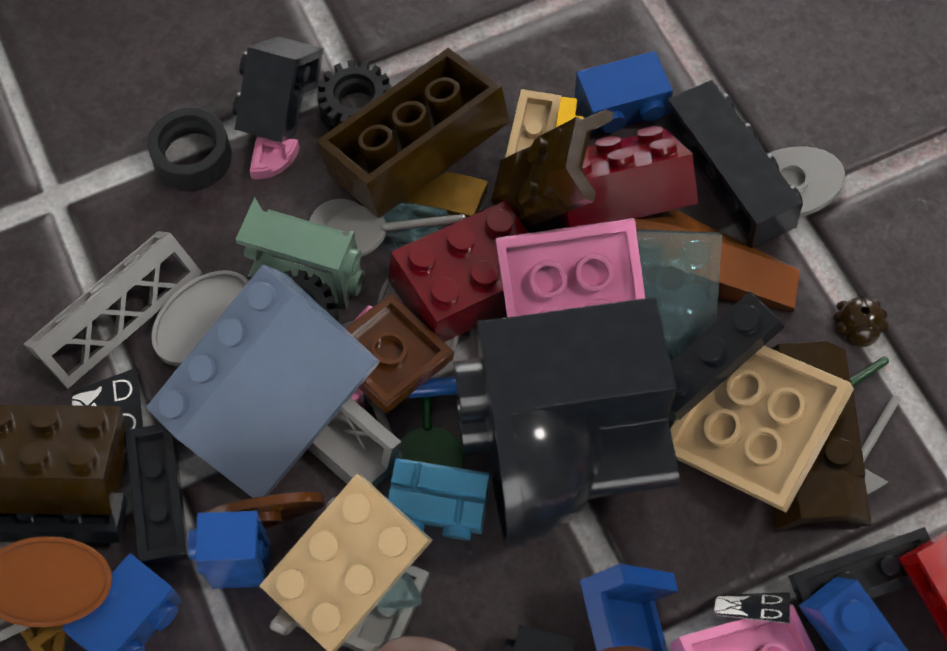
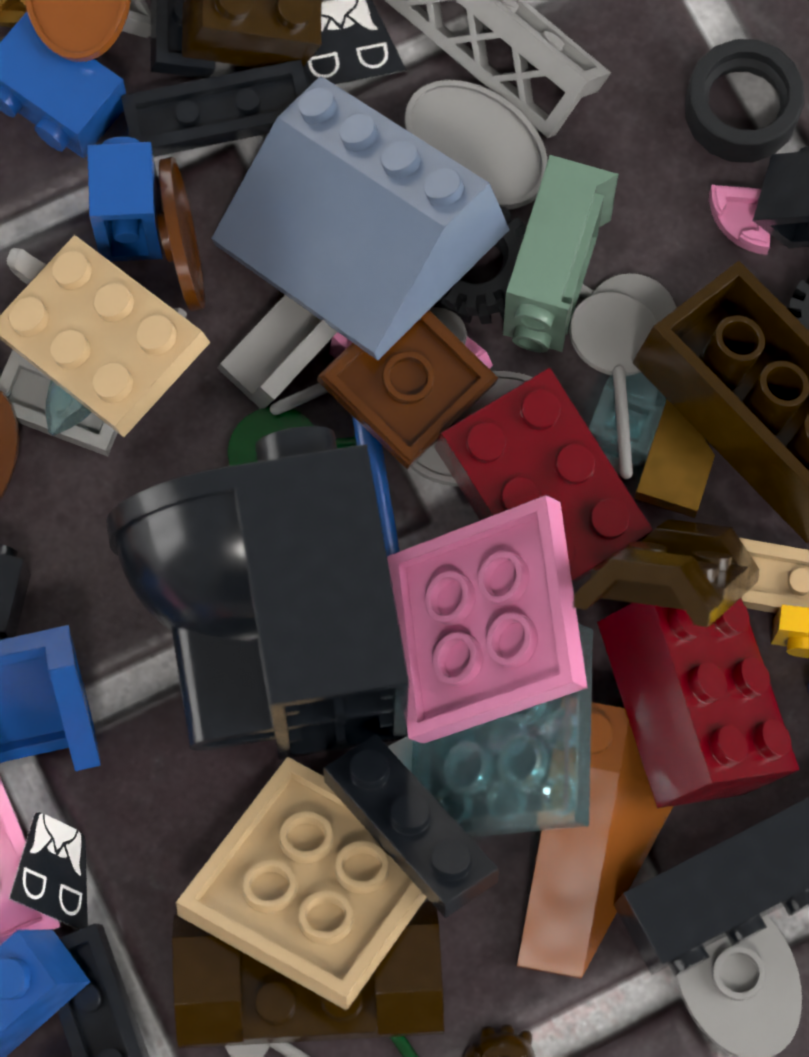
camera: 85 degrees right, 10 degrees up
(441, 496) = (208, 432): dark azure brick -> none

